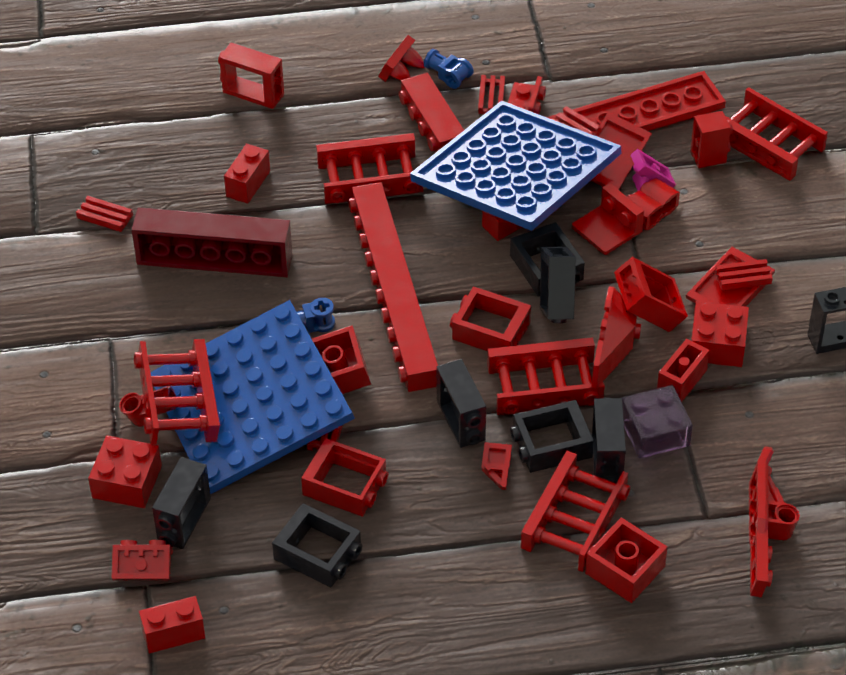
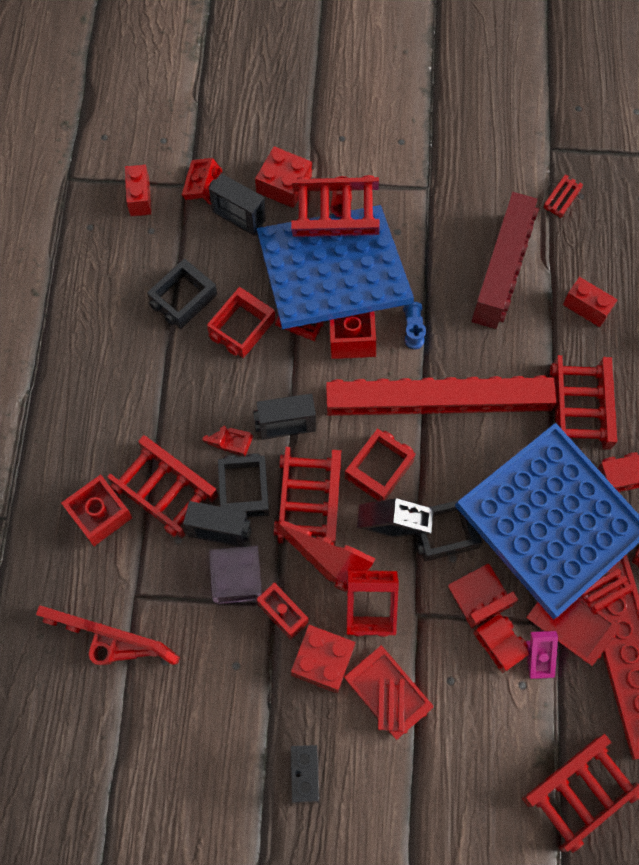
camera: 100 degrees right, 20 degrees up
(711, 139) = (572, 722): red brick -> none

